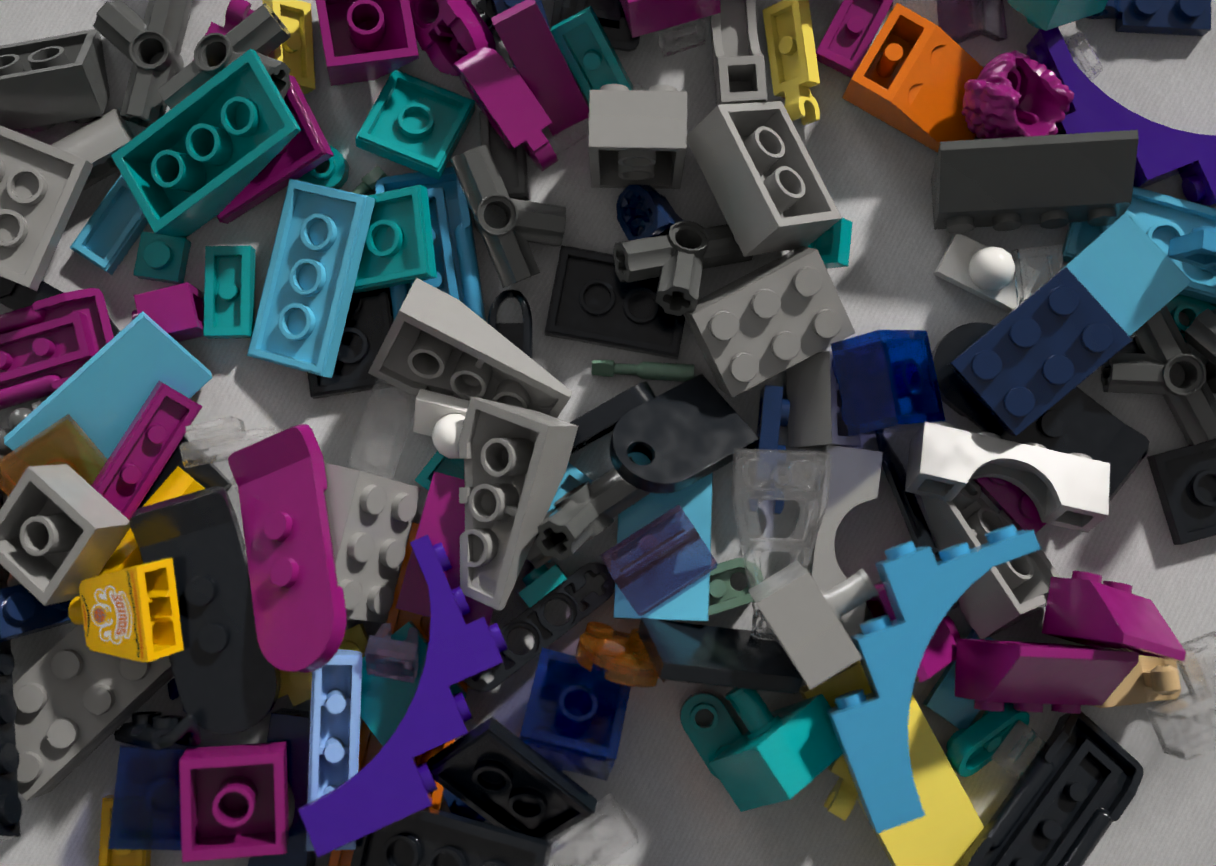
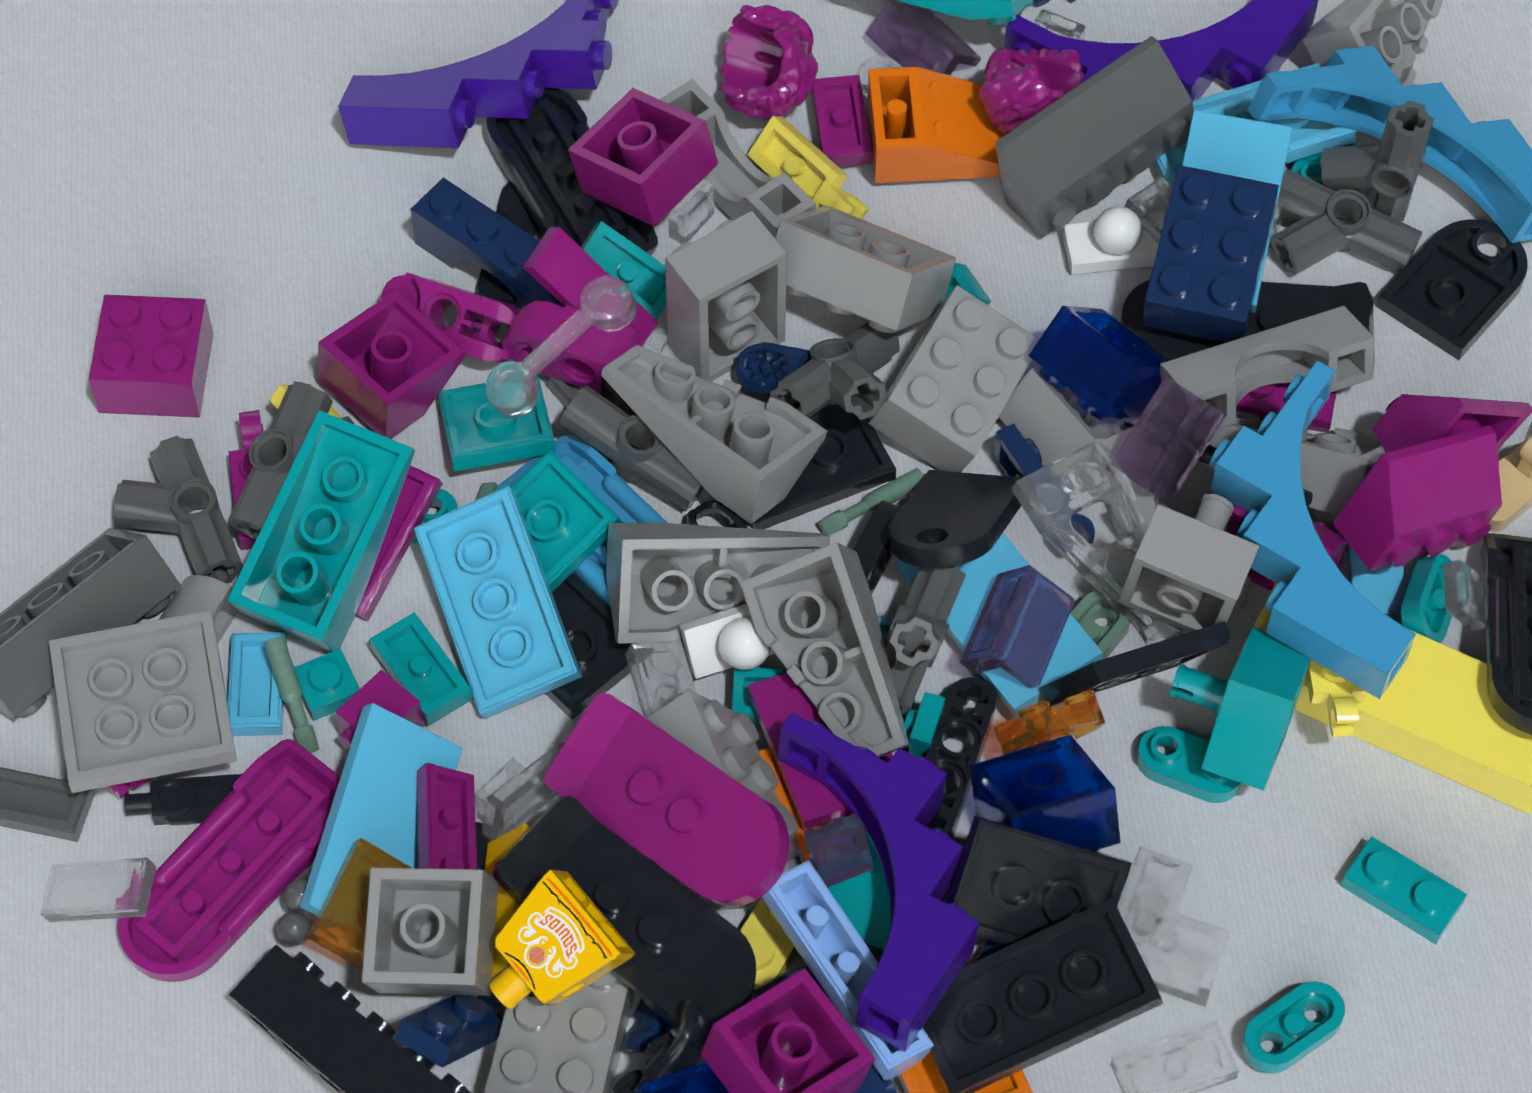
camera: 40 degrees left, 25 degrees down
(127, 251) = (291, 691): none -> sand green piece
(434, 110) = (603, 303): none -> clear piece
(558, 256) = (730, 442): none -> light grey wedge
(880, 488) = (1169, 439): none -> clear purple panel

